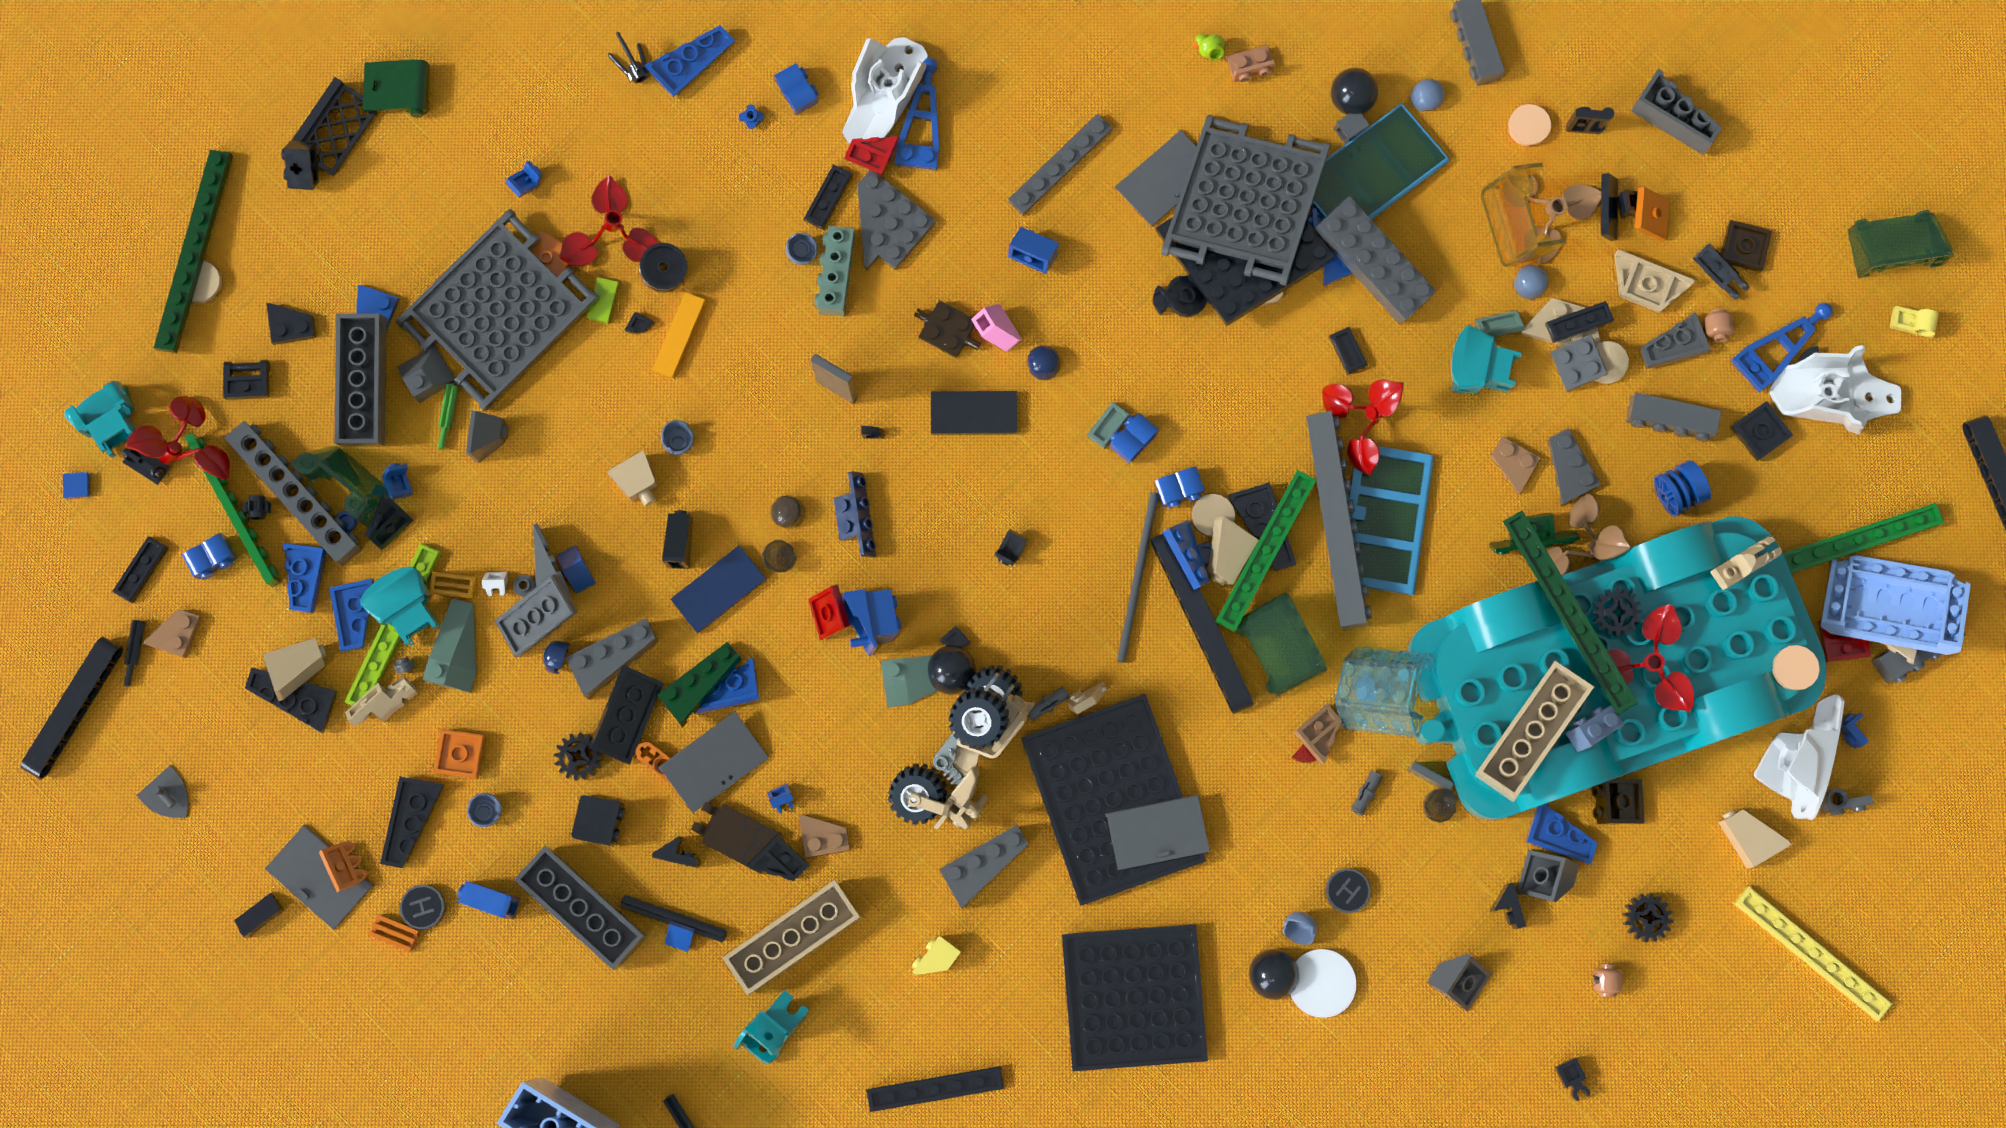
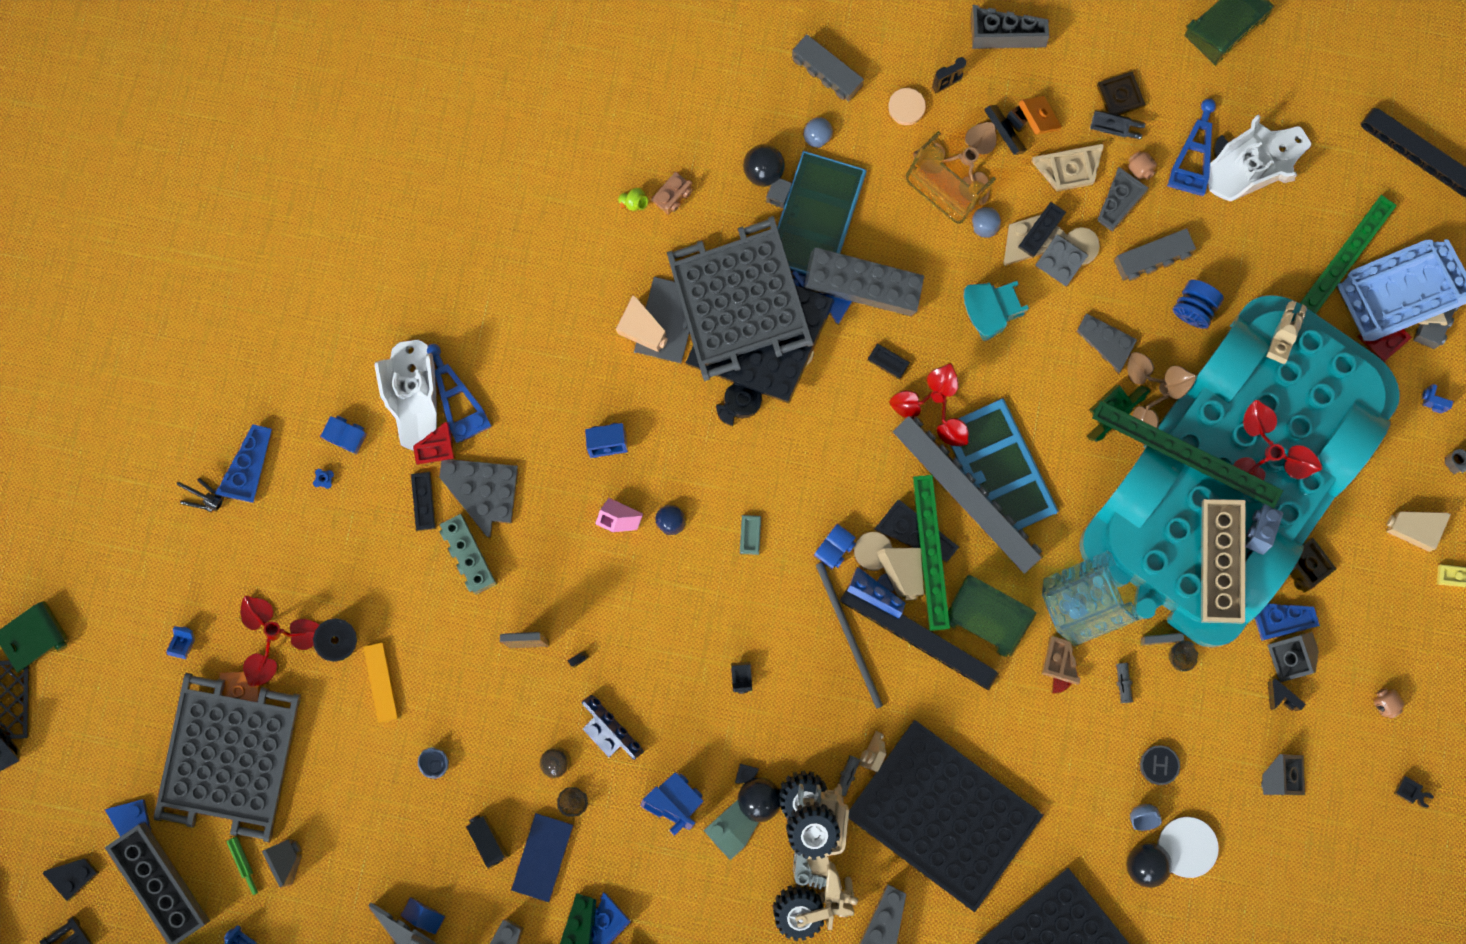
camera: 30 degrees left, 0 degrees up
(426, 374) = (205, 844): dark grey slope -> none
(603, 308) = (303, 686): lime tile -> none
(635, 478) = (422, 816): tan torso -> none
(638, 324) = (344, 695): black tile -> none
(801, 248) = (430, 555): sand blue hair -> none
(829, 612) = (639, 819): red tile -> none
(947, 329) = (581, 542): dark brown plate -> none
(973, 412) = (644, 592): black tile -> none
(1060, 164) = (582, 362): dark grey plate -> none
(1133, 438) = (776, 532): blue brick -> none
(1136, 167) = (641, 327): none -> light nougat slope
(1158, 829) = (997, 811): dark grey container -> none
(1501, 324) = (985, 268): sand green tile -> none
(1514, 462) = (1064, 364): medium nougat wing -> none
(1616, 621) = (1225, 437): black gear -> none
(1646, 926) = (1381, 629): black gear -> none
(1761, 431) = (1224, 223): black plate -> none
(1795, 667) = (1372, 385): light nougat tile -> none
(1802, 763) = (1418, 447): white piece -> none
(1915, 322) = (1276, 72): light yellow plate -> none

